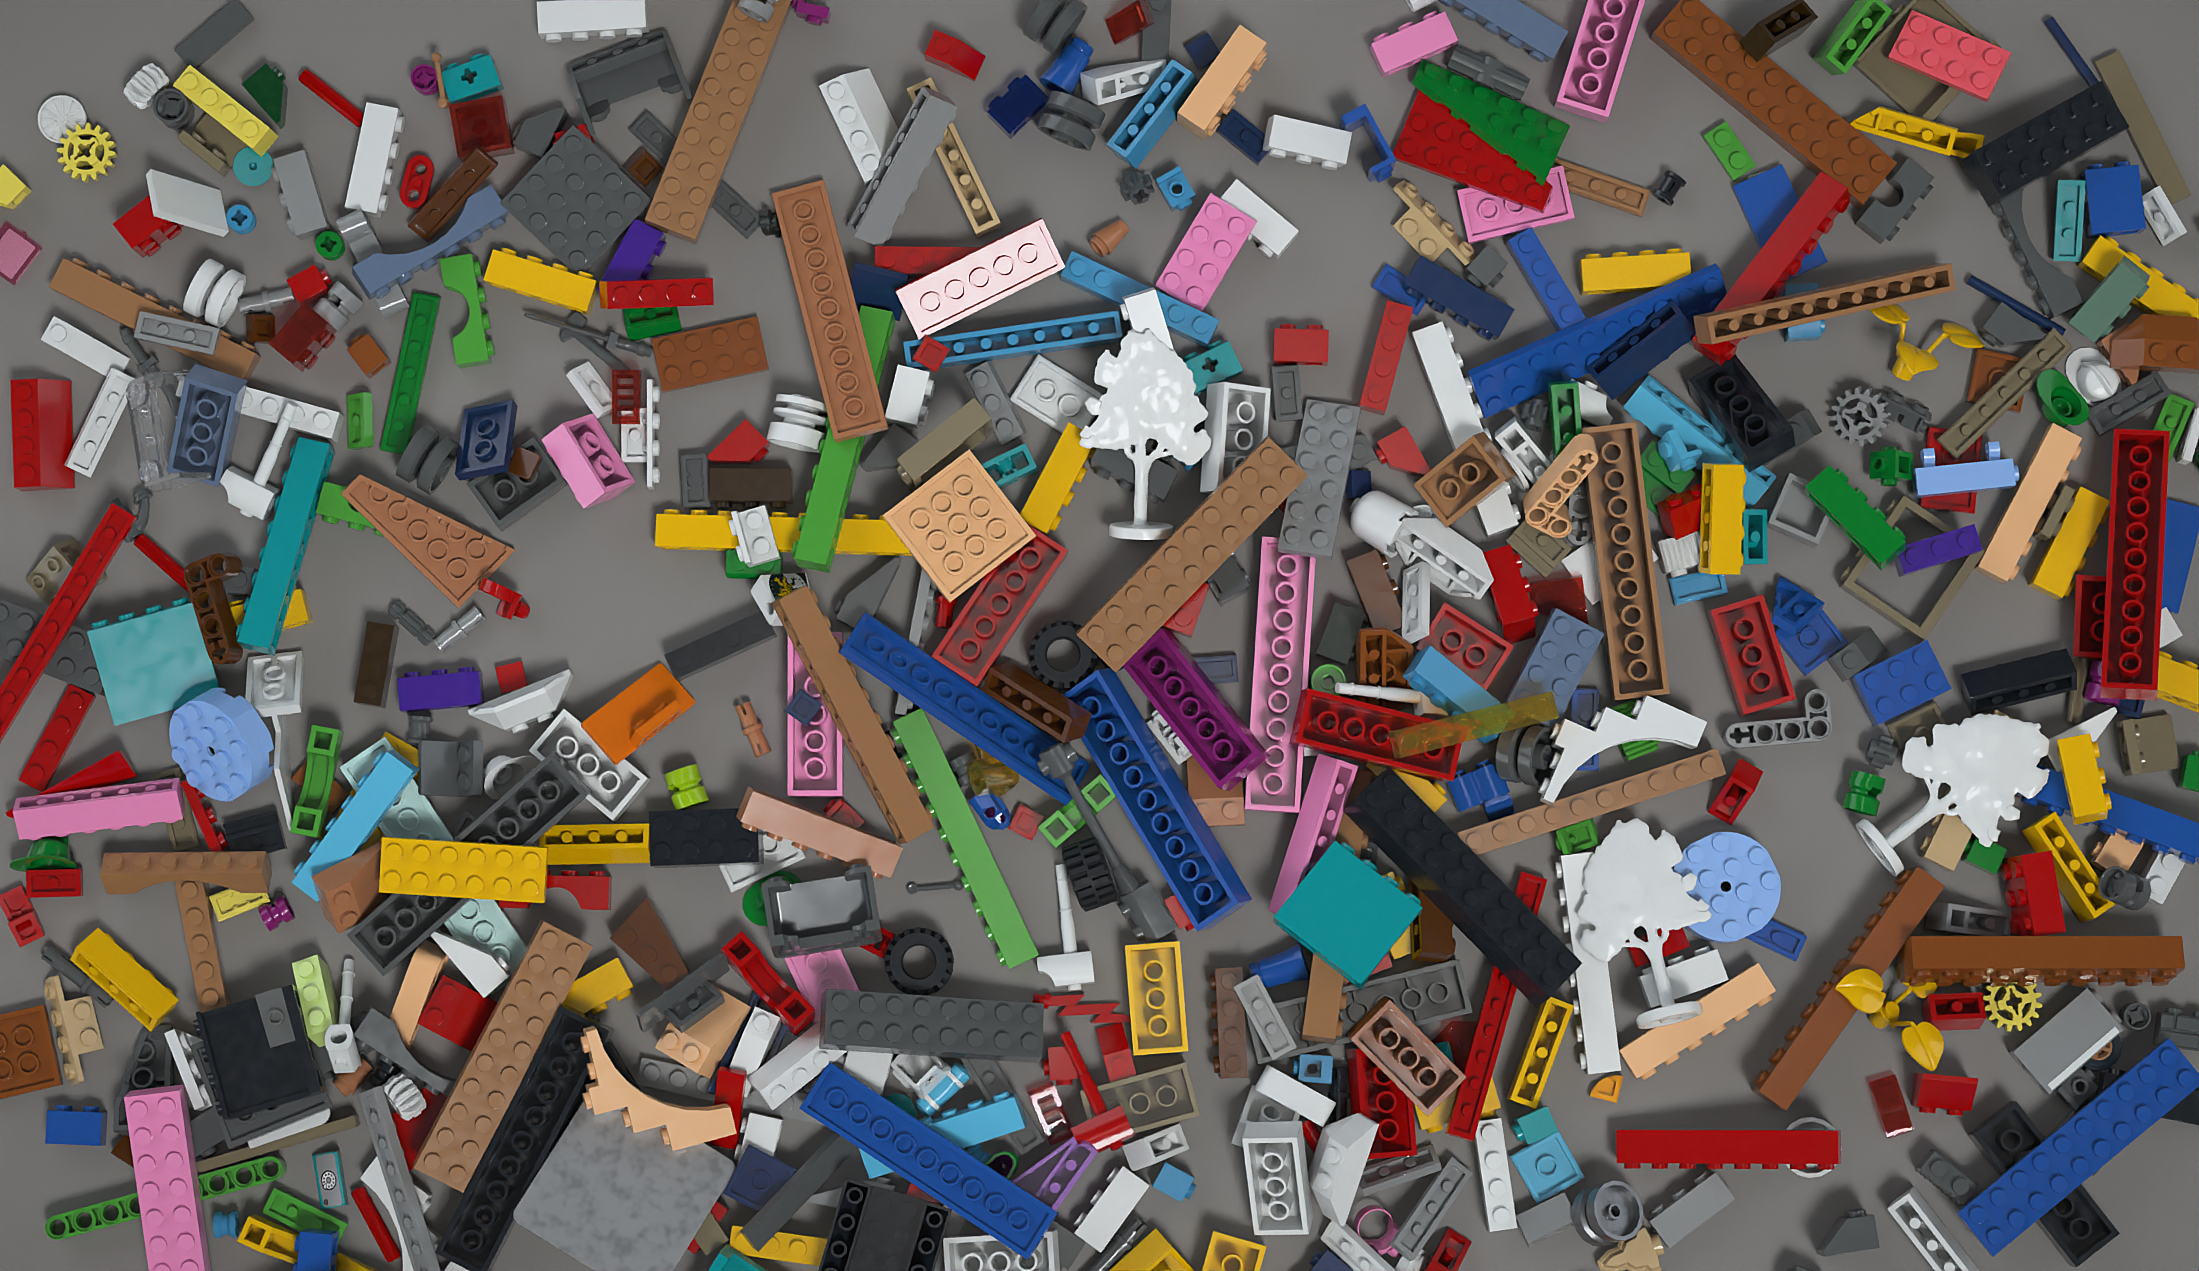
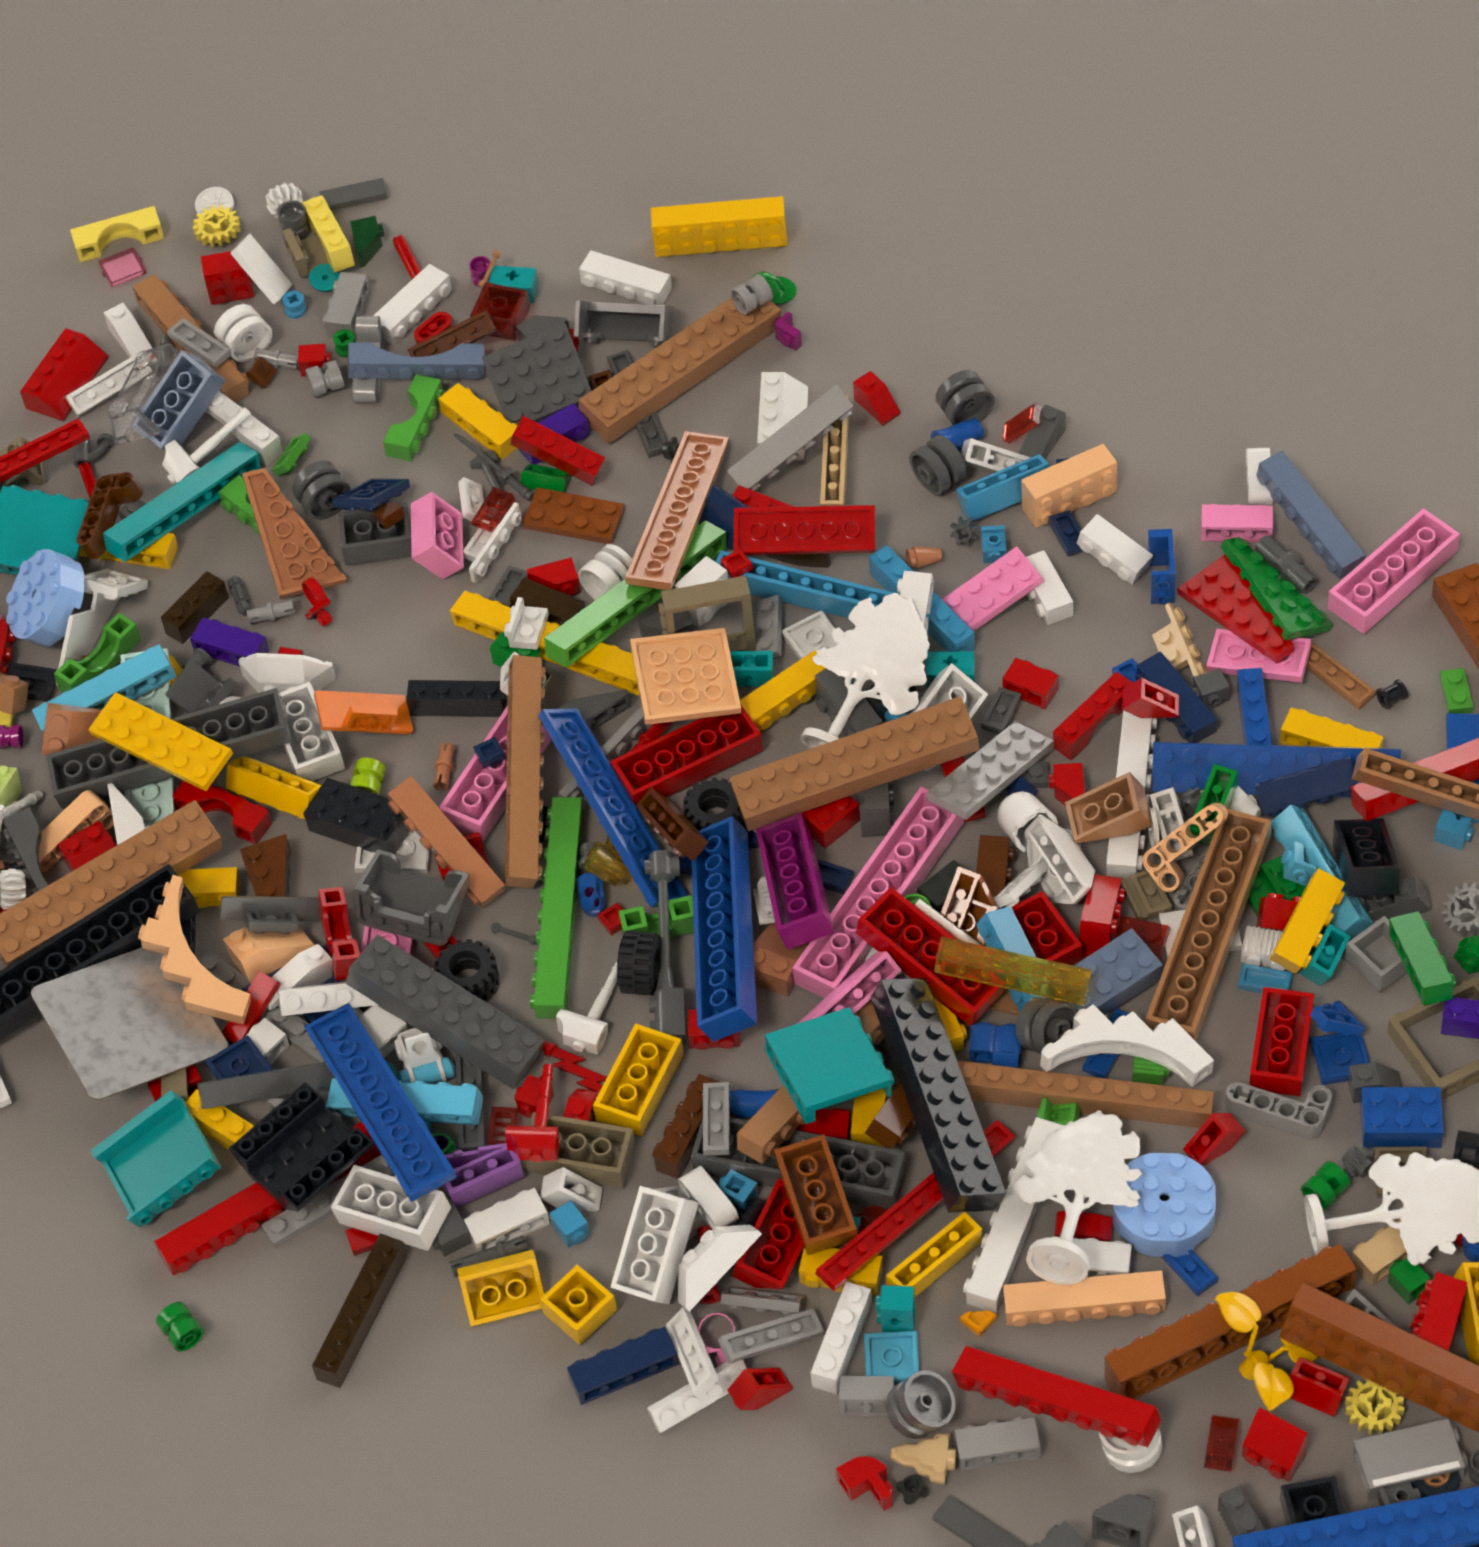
camera: 30 degrees right, 30 degrees down
(303, 338) = (286, 383): clear red brick -> none
(368, 355) = (325, 417): dark orange brick -> none
(410, 373) = (360, 431): green tile -> none
(1017, 105) = (897, 446): clear blue brick -> none
(1443, 326) = (1150, 700): none -> red slope

